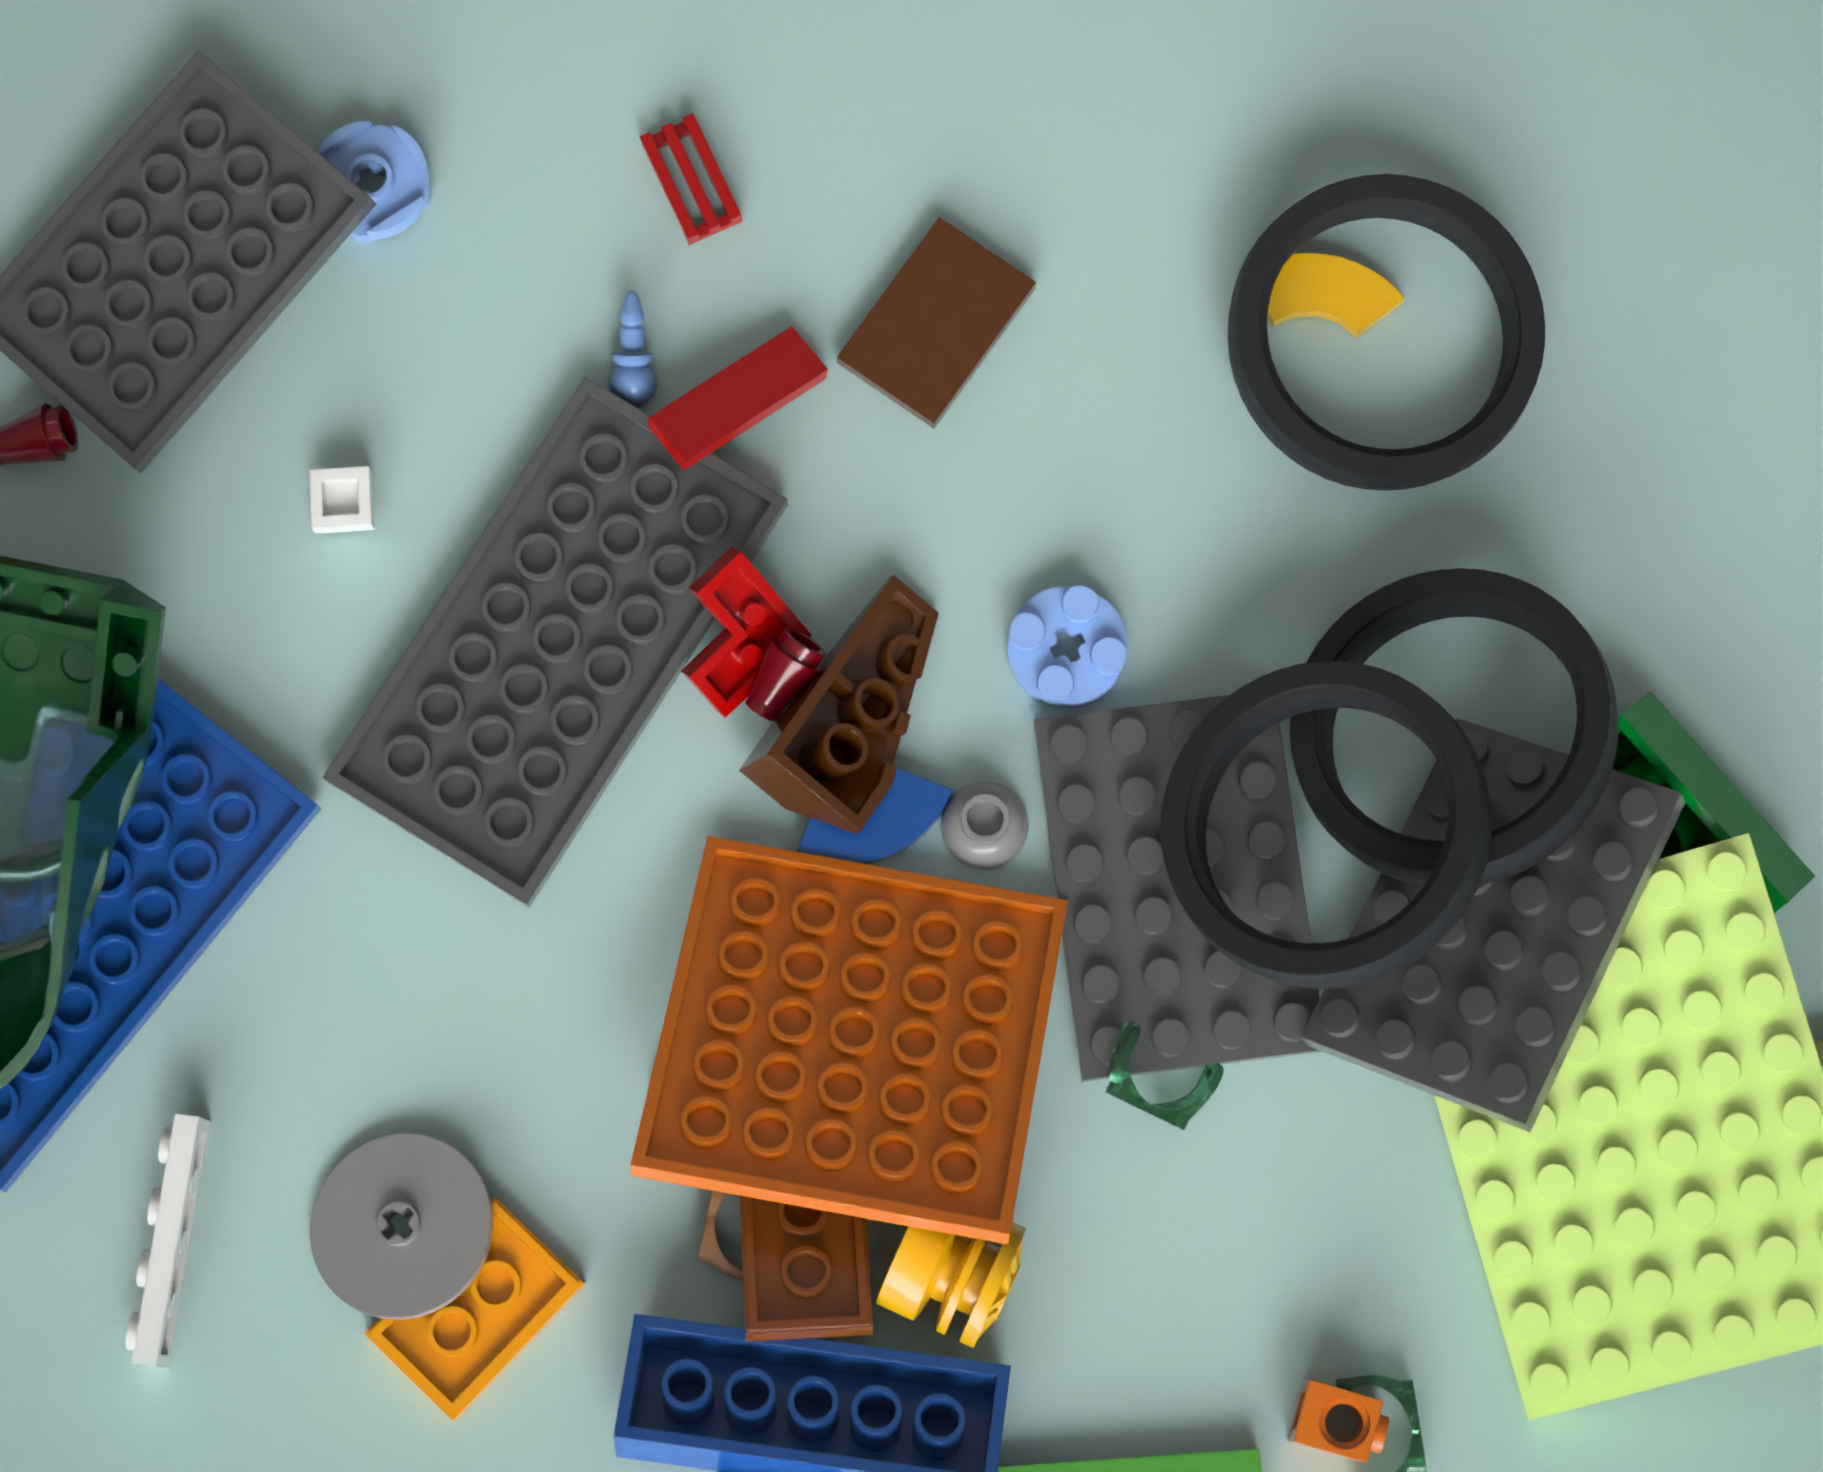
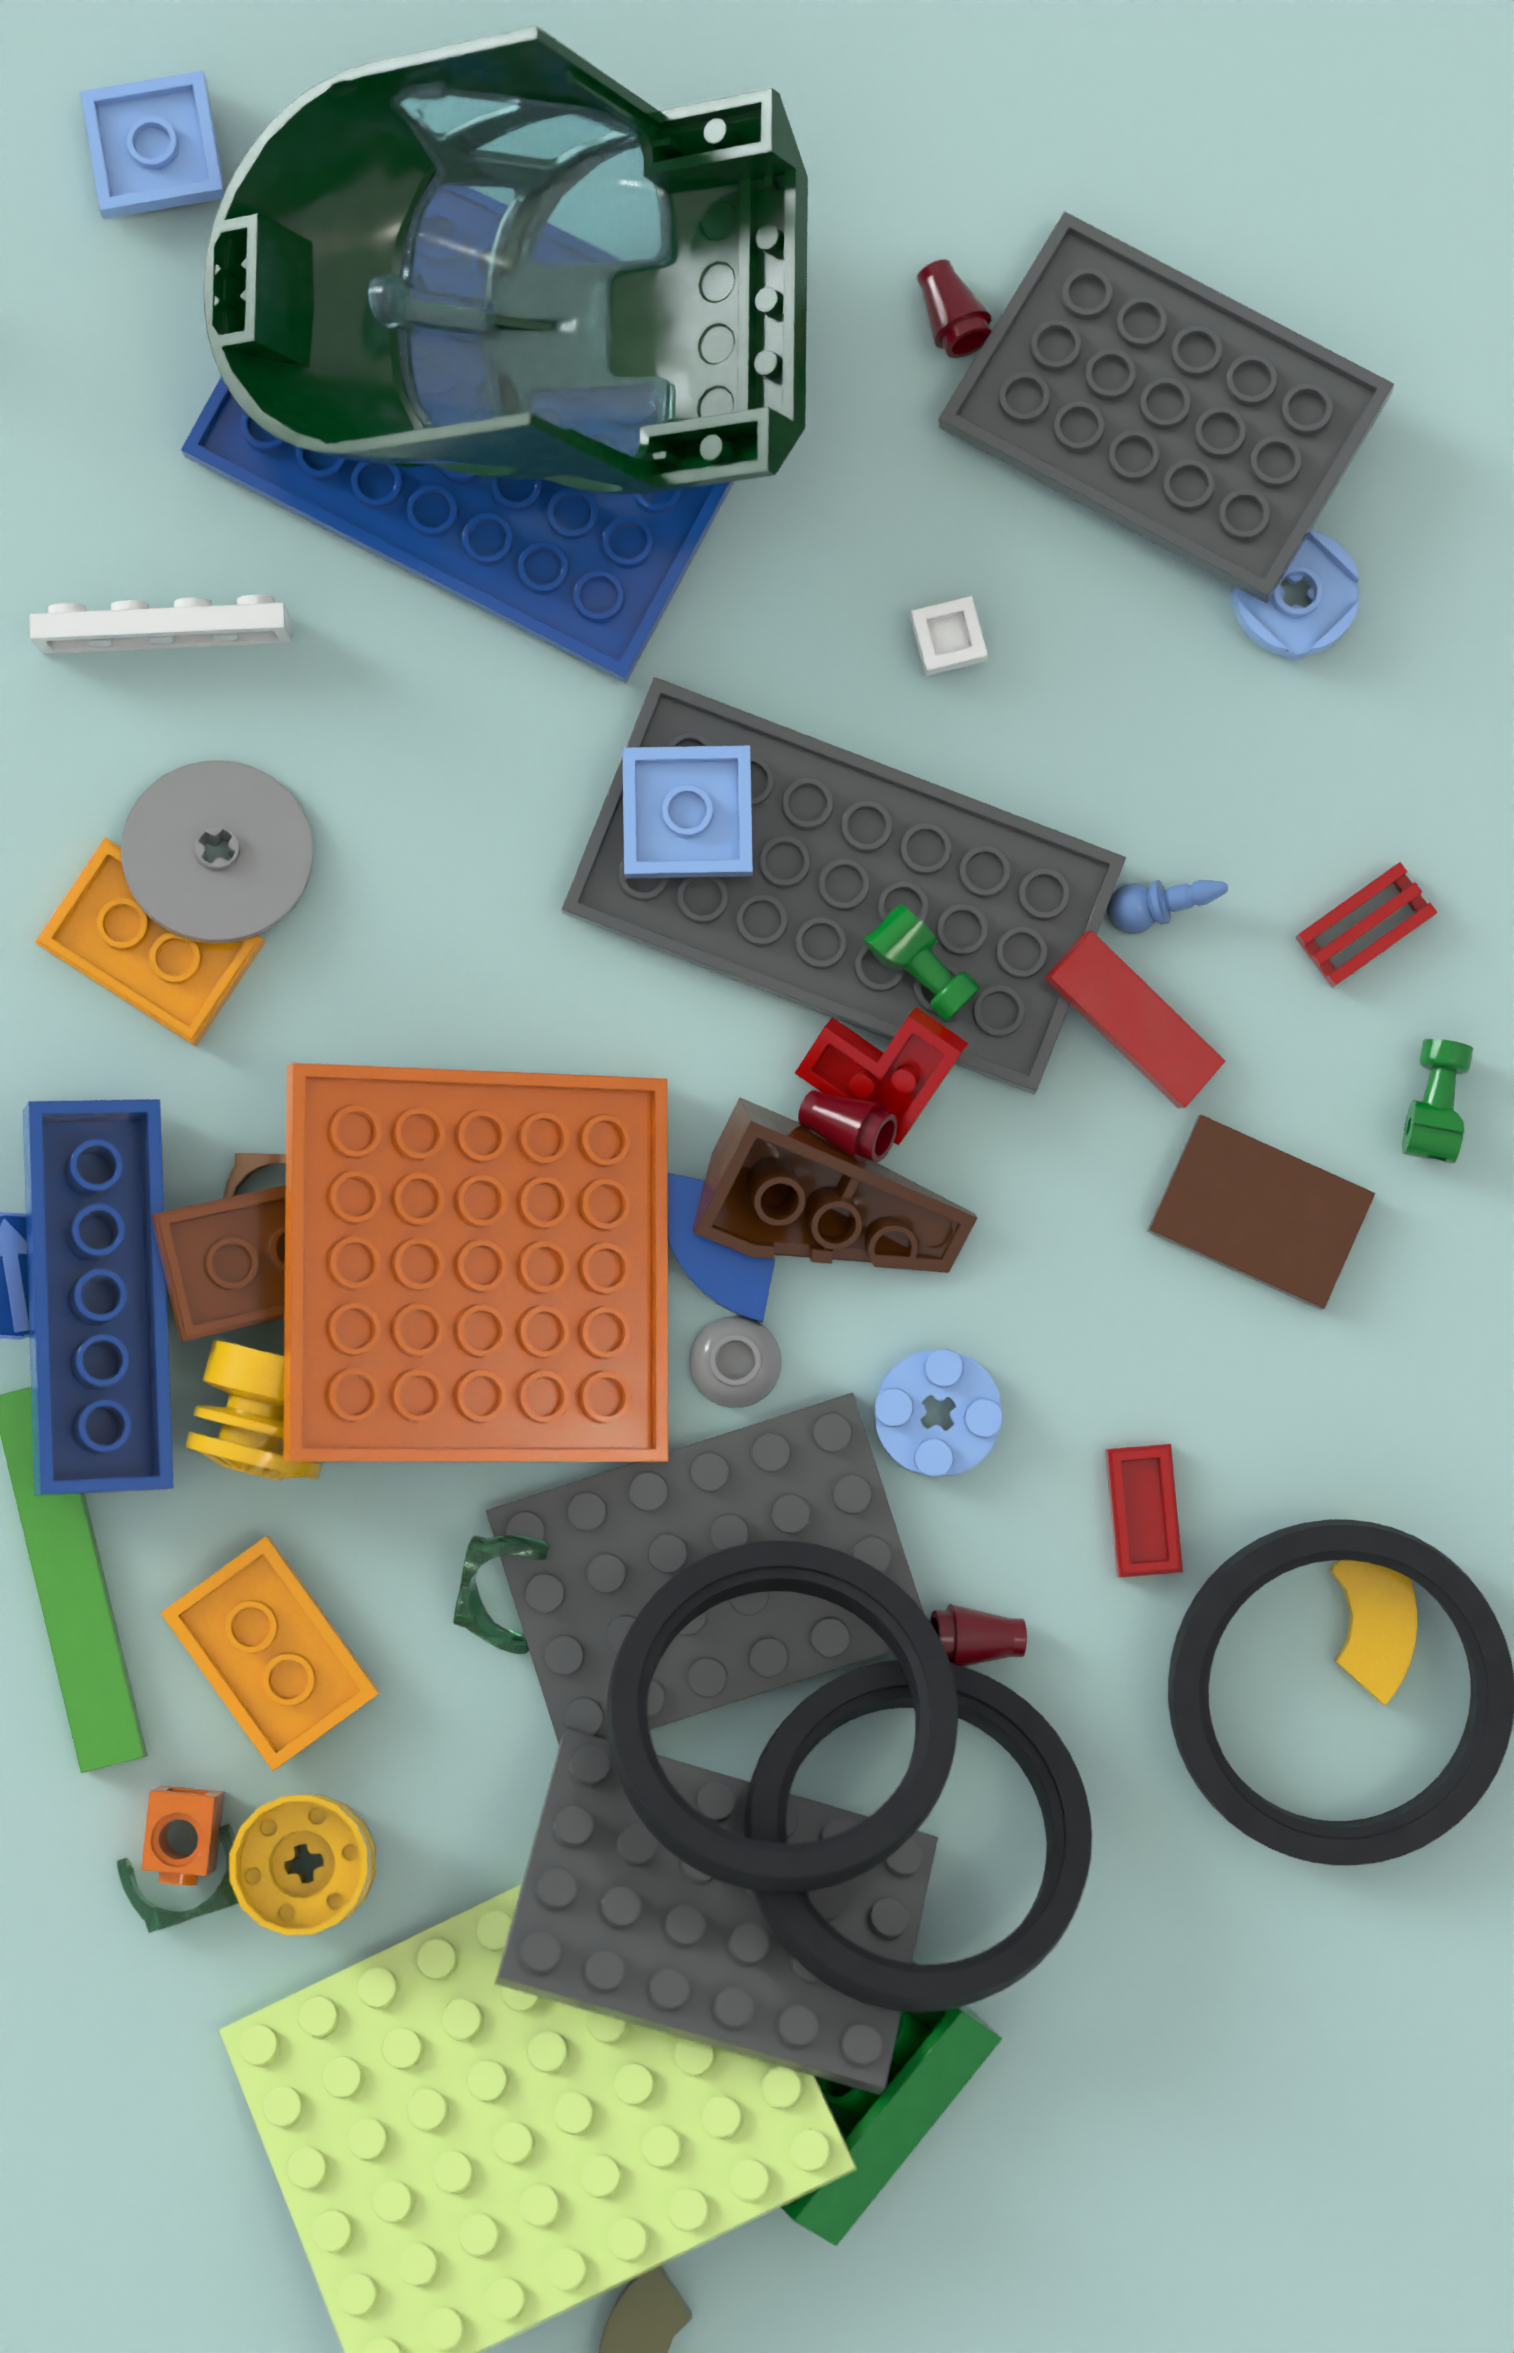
camera: 75 degrees right, 5 degrees up
(460, 765) = (687, 811): none -> light blue plate
(626, 586) = (907, 944): none -> green leg
(886, 155) = (1432, 1125): none -> green leg
(1181, 1308) = (270, 1652): none -> light orange plate
(1190, 478) = (1144, 1510): none -> red tile
(1280, 640) = (978, 1636): none -> dark red cone
(1412, 1278) = (273, 1838): none -> yellow wheel

